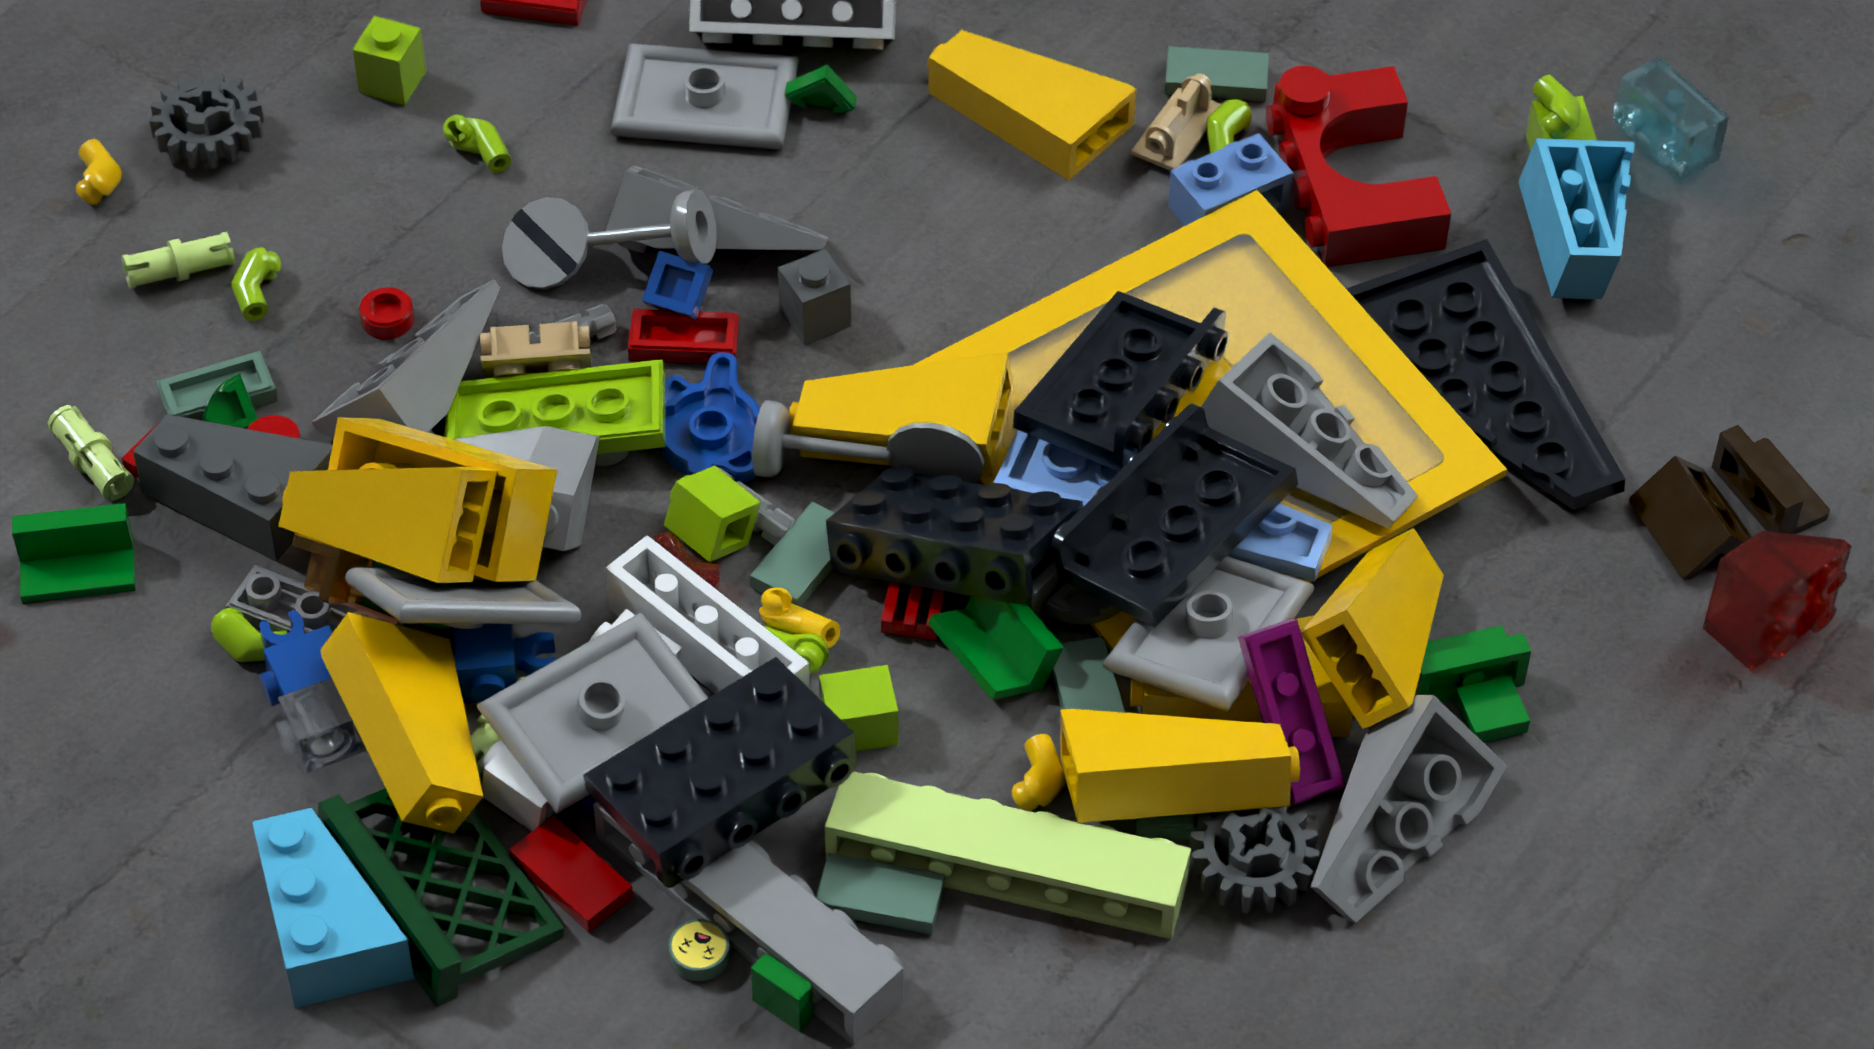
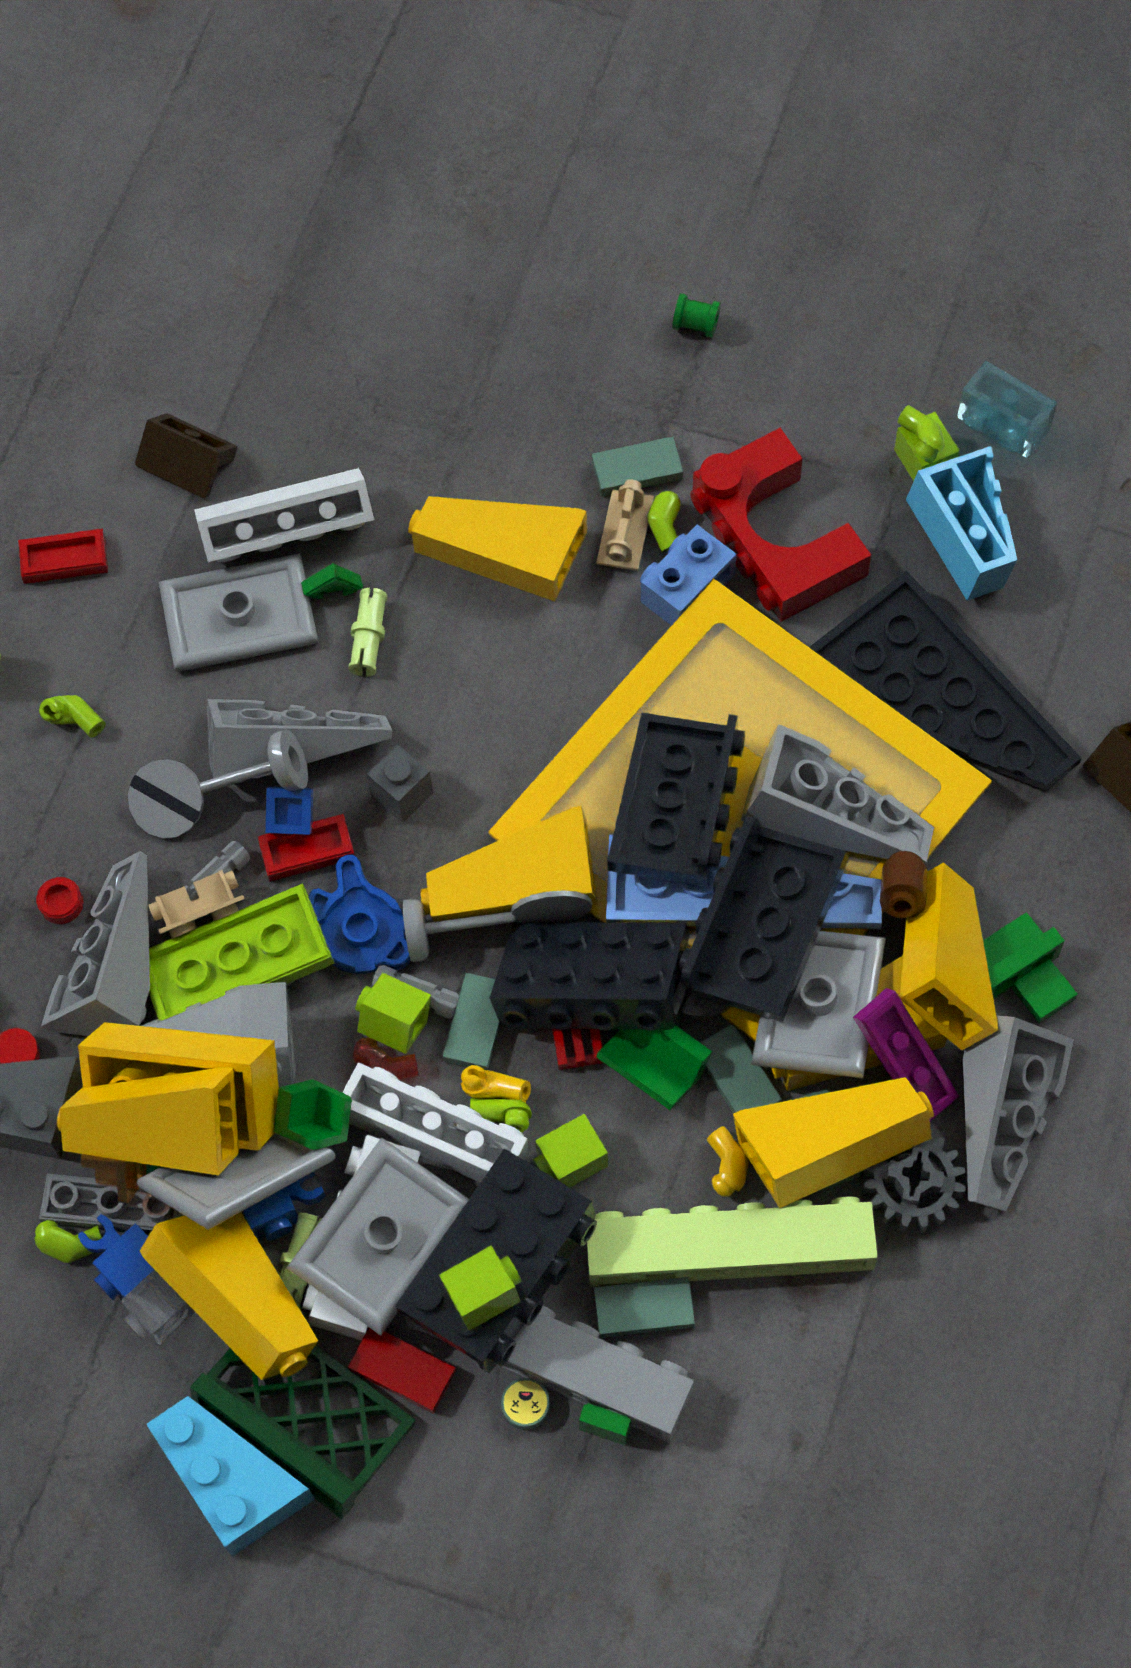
camera: 15 degrees left, 15 degrees up
(572, 568) = (312, 1114): none -> green panel
(687, 766) = (482, 1286): none -> lime brick
(841, 150) = (367, 632): none -> yellowish green pin
(1355, 535) = (903, 885): none -> reddish brown brick

